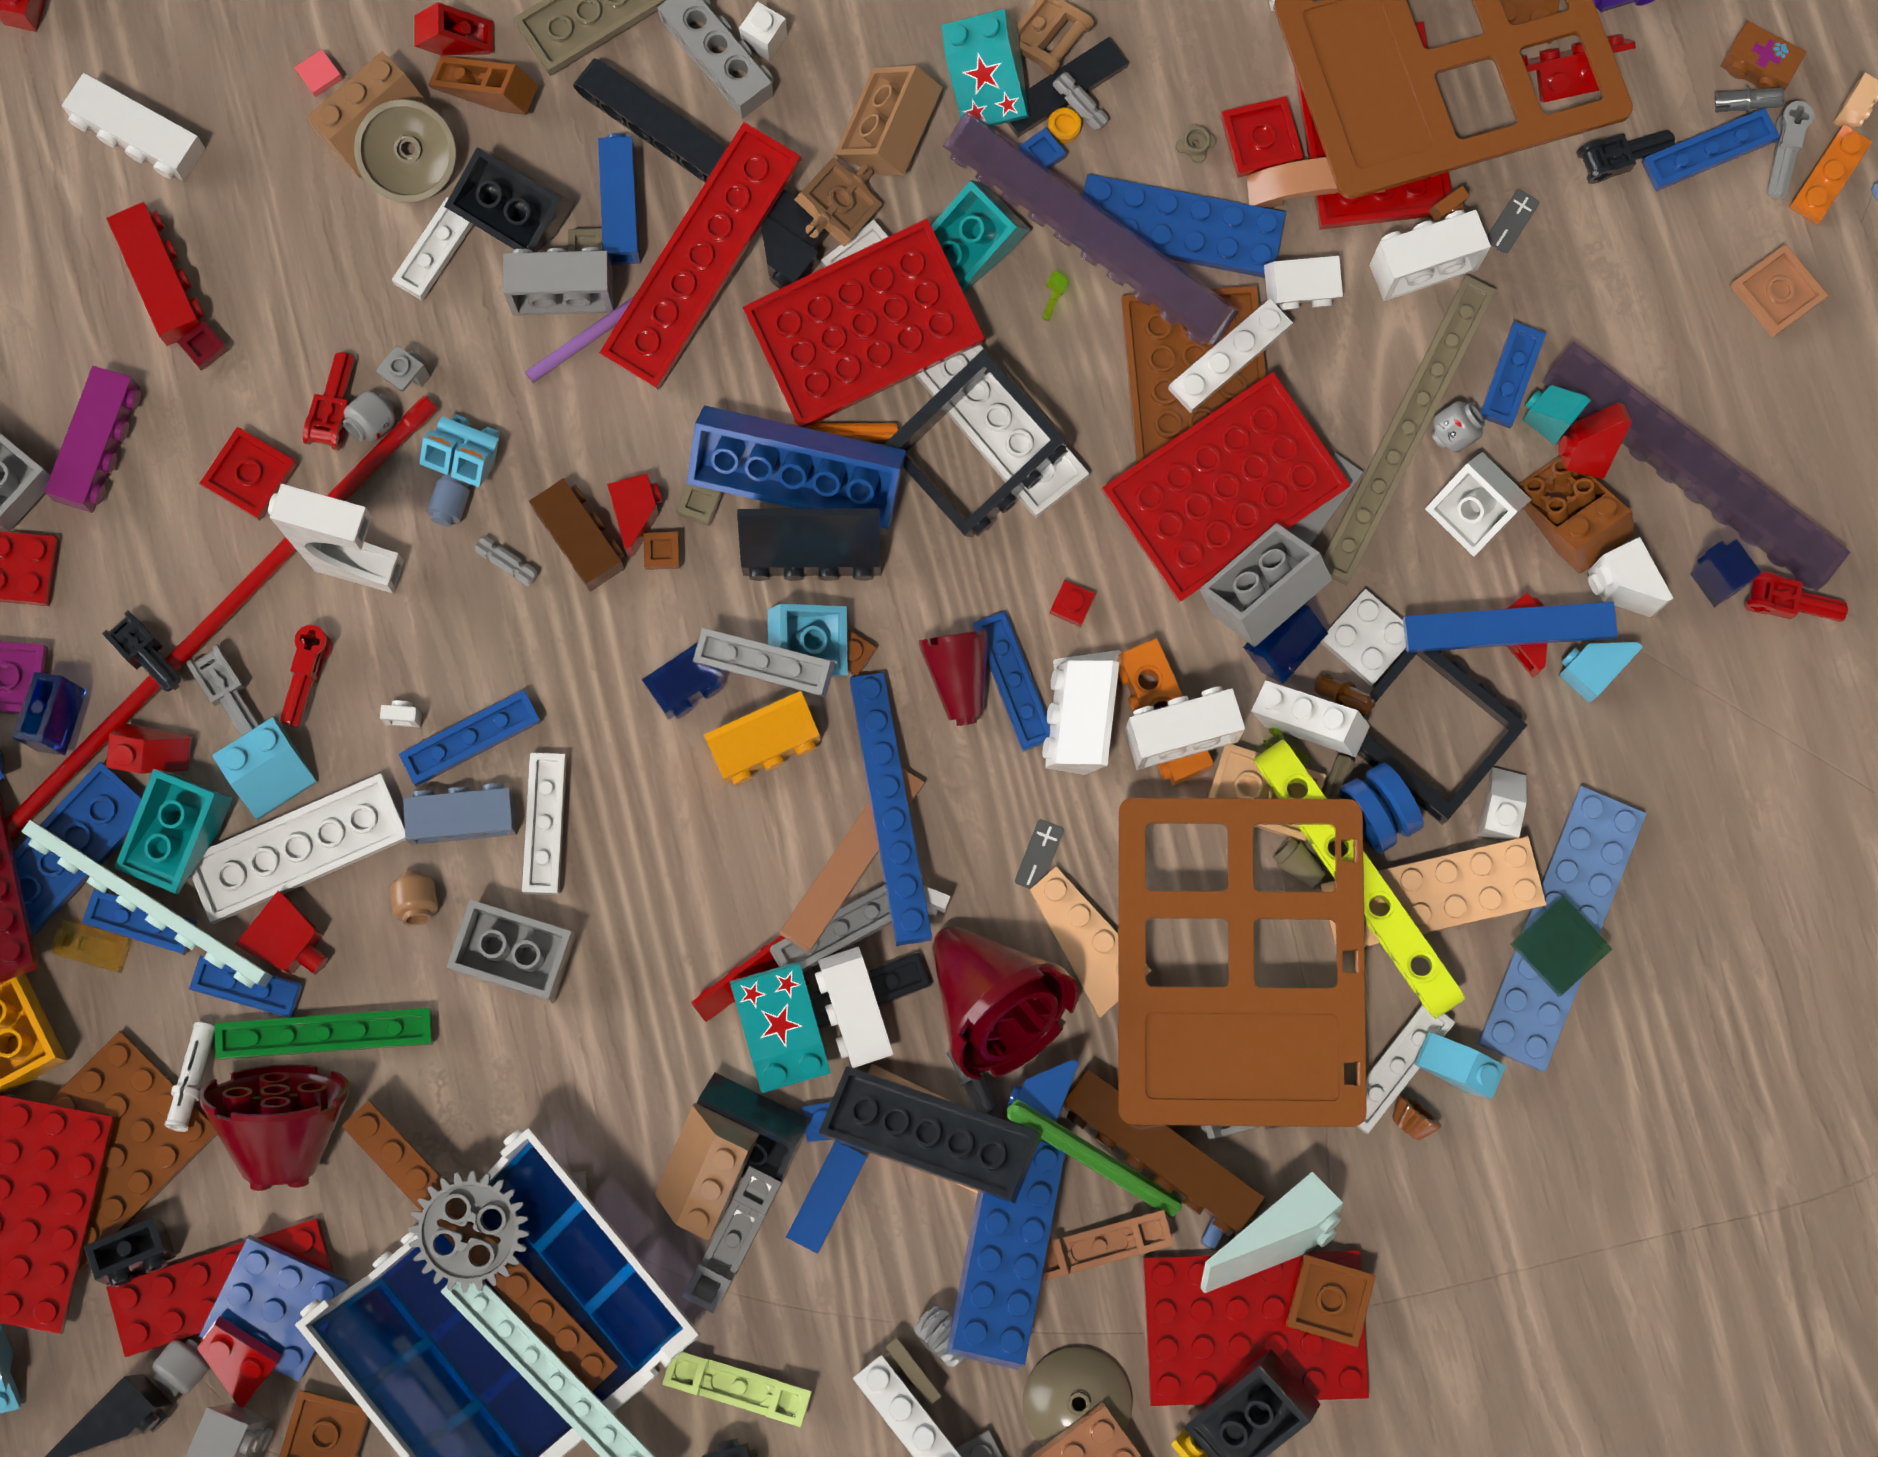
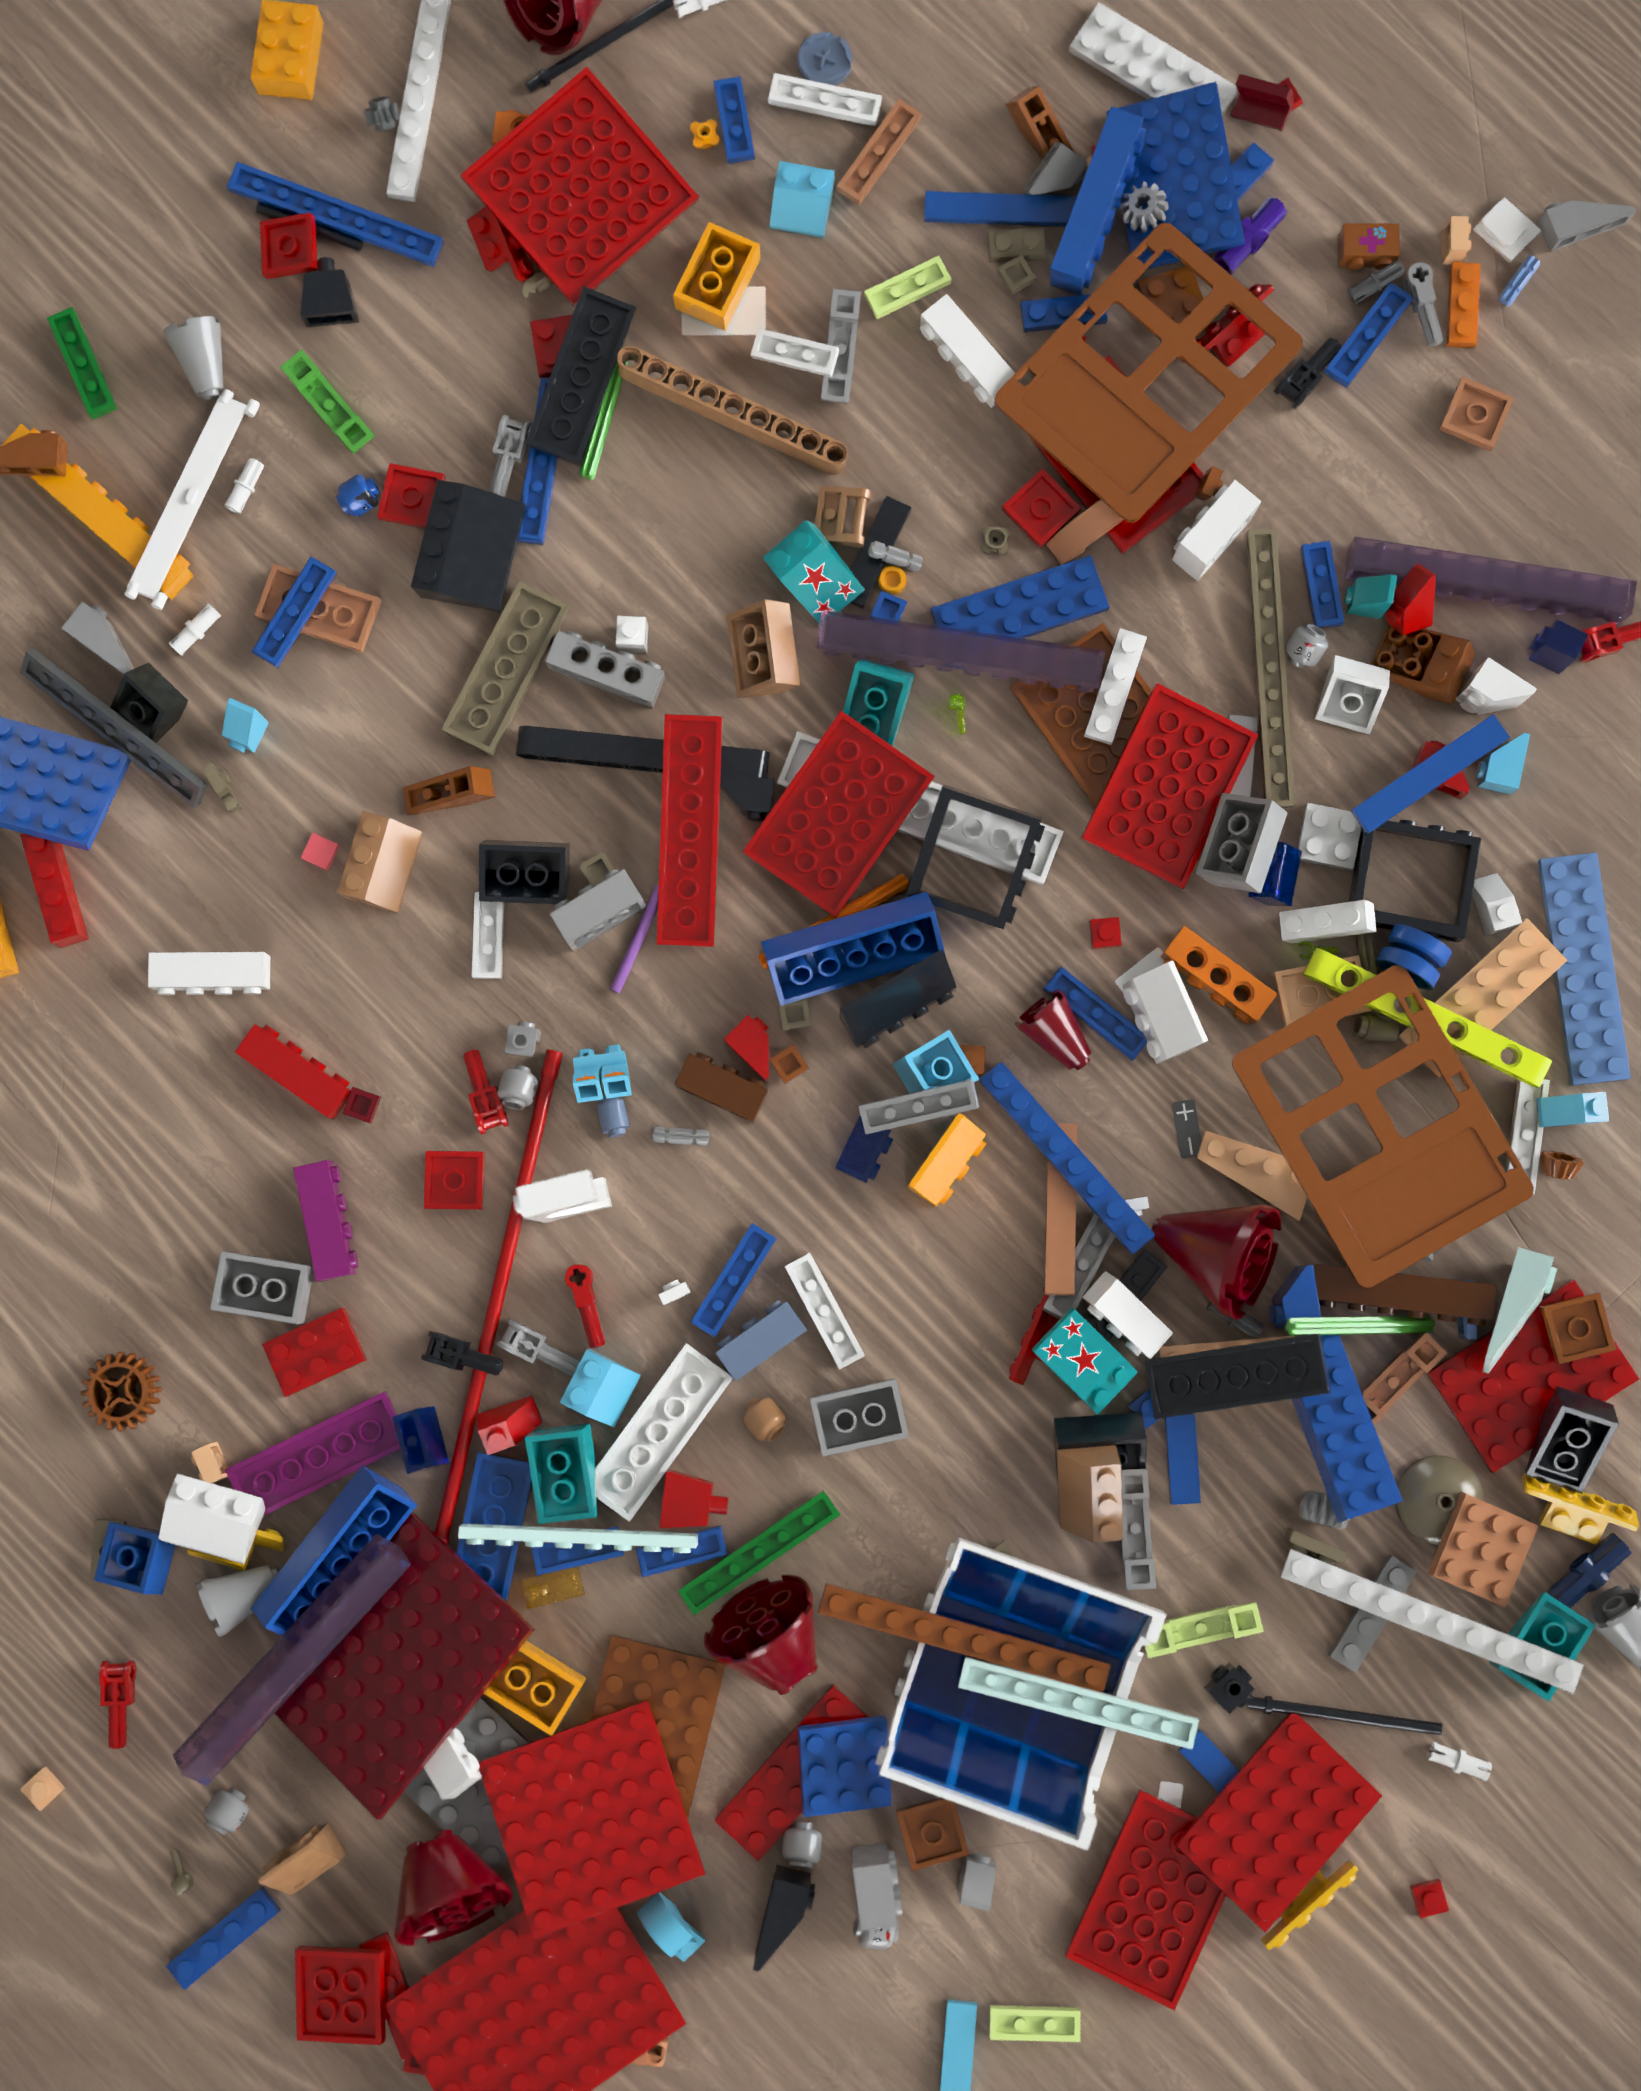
camera: 25 degrees left, 5 degrees up
(129, 1252) = (717, 1788): black brick -> none
(186, 1090) = (687, 1650): white pin -> none
(237, 1359) = (842, 1817): red wing -> none
(386, 164) = (425, 893): dark tan dish -> none
(452, 31) = (402, 765): red slope -> none
(459, 1264) = (960, 1662): light grey gear -> none
(619, 199) = (601, 821): blue brick -> none
(838, 201) = (765, 733): medium nougat plate -> none
(1184, 727) = (1246, 981): white brick -> none
(1304, 281) = (1135, 601): white brick -> none
(1344, 693) = (1339, 889): reddish brown axle -> none
(1512, 221) = (1255, 468): dark grey sticker -> none
(1561, 946) = (1593, 983): clear green tile -> none

